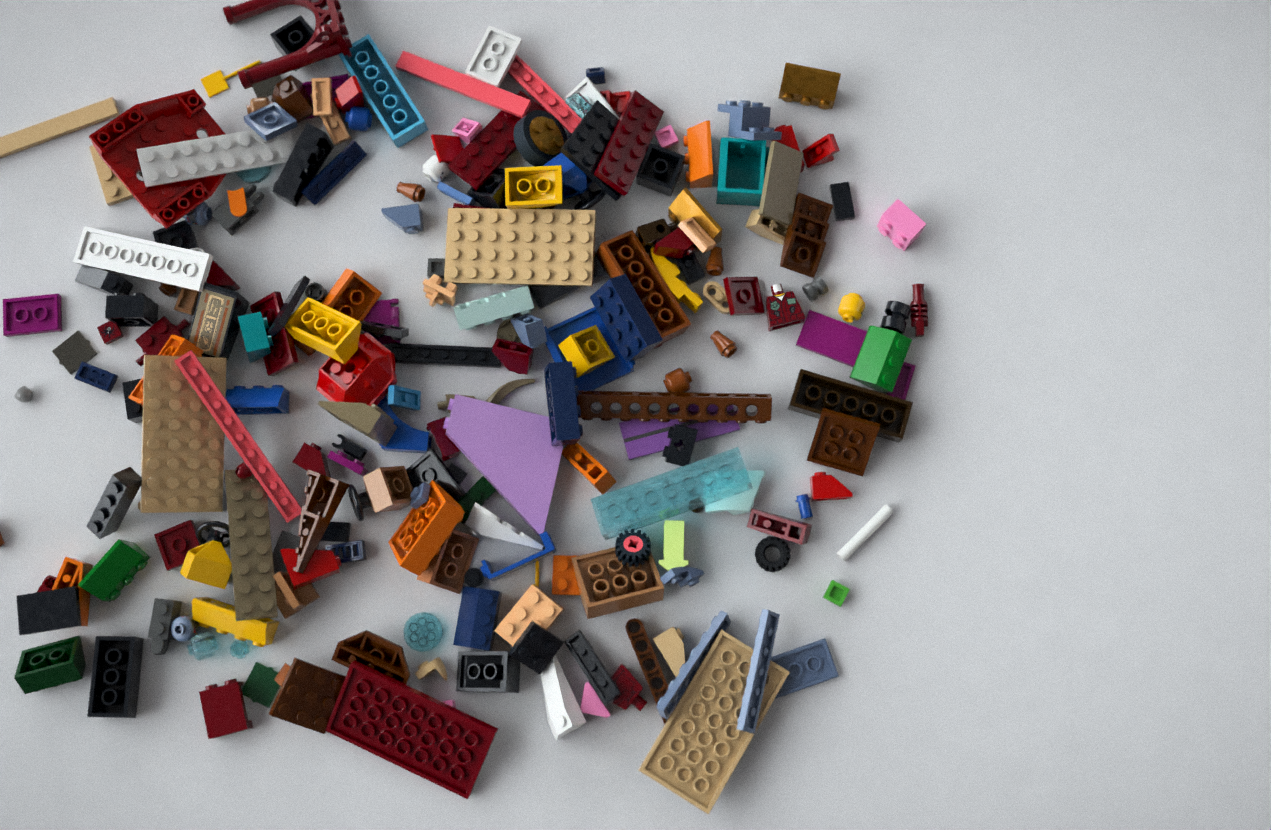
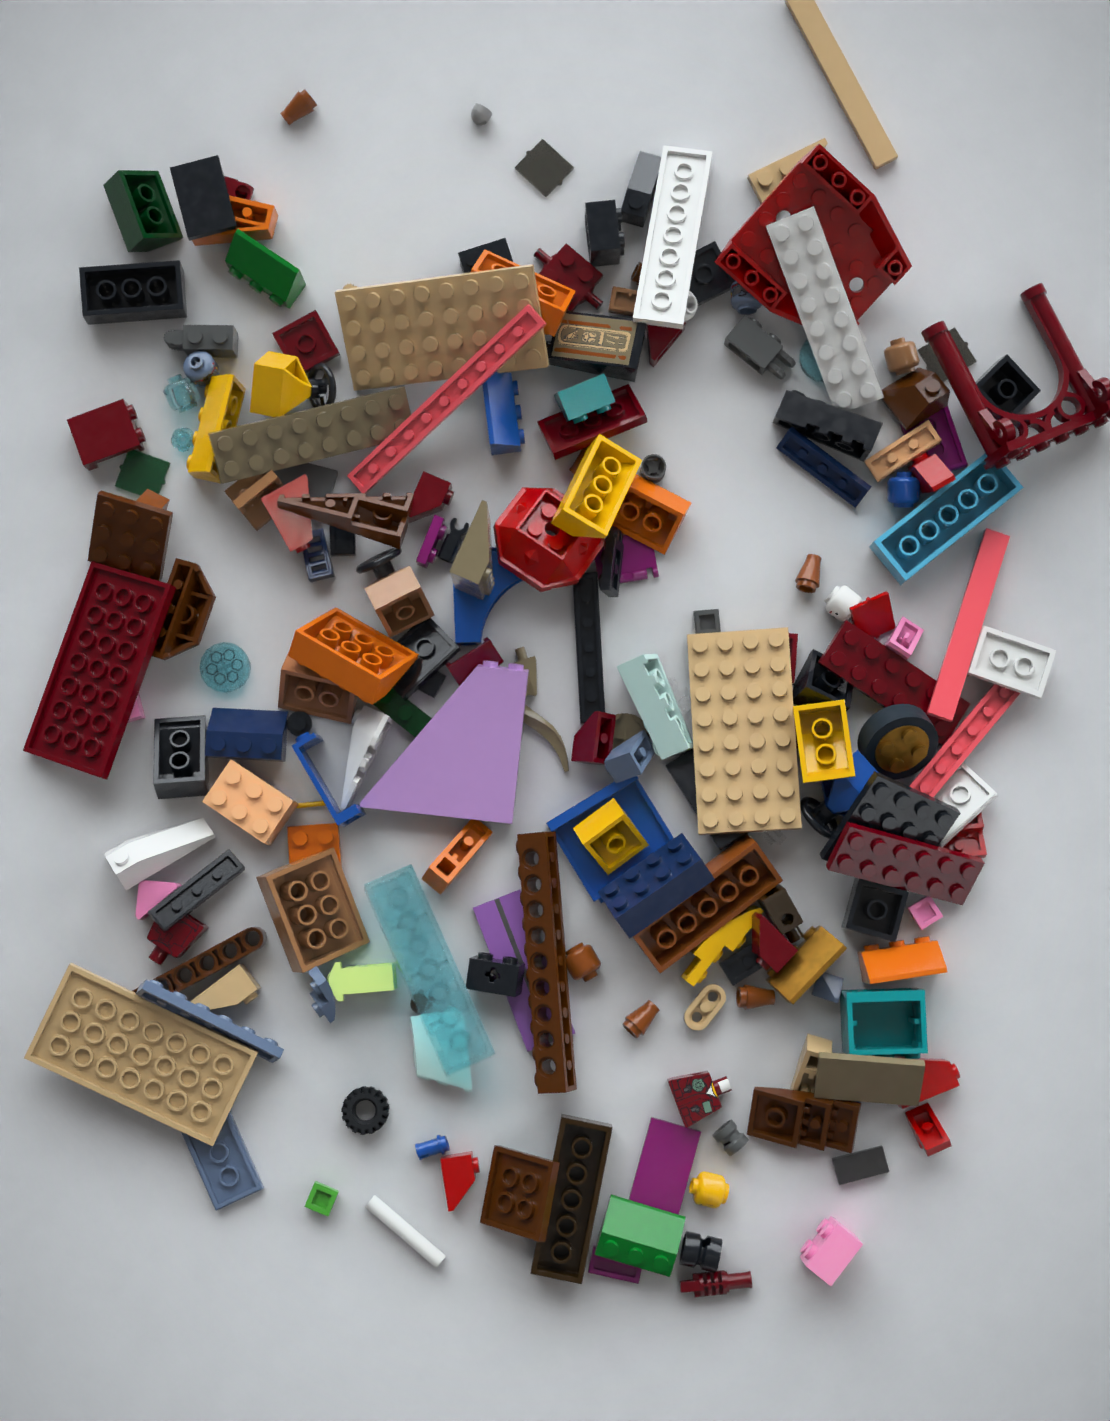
camera: 80 degrees right, 5 degrees up
(32, 315) = (588, 105): magenta tile -> none
(96, 377) = (513, 201): dark blue plate -> none
(110, 332) = (574, 208): dark red tile -> none
(114, 502) = (346, 256): black brick -> none
(216, 82) = (935, 289): yellow piece -> none
(237, 202) = (764, 347): orange piece -> none
(242, 471) = (403, 410): dark red hinge -> none
(270, 121) = (880, 374): sand blue plate -> none
(289, 306) = (627, 437): black tile -> none
(322, 97) = (925, 437): light nougat plate -> none
(404, 397) = (522, 603): dark azure plate -> none
(405, 217) = (770, 573): sand blue slope -> none
(419, 495) = (395, 641): sand blue plate -> none
(428, 667) = (178, 678): tan plate -> none
(437, 293) = (677, 621): light nougat hips -> none
(455, 194) = (810, 635): medium blue tile -> none
(536, 647) = (212, 815): black plate -> none
(562, 403) = (528, 814): dark blue brick -> none
(578, 104) = (953, 788): clear light blue plate -> none
(596, 75) = (1006, 805): dark blue slope -> none
(629, 554) = (345, 924): black wheel -> none
(697, 234) = (782, 970): light nougat tile -> none
(715, 208) = (828, 987): none -> sand blue slope
(743, 296) = (708, 1040): dark red plate -> none
(749, 120) = (956, 1027): sand blue bracket -> none
(758, 671) = (206, 1105): sand blue plate -> none
(779, 526) = (400, 1117): slope -> none
(809, 86) = (1019, 1105): pearl gold slope -> none

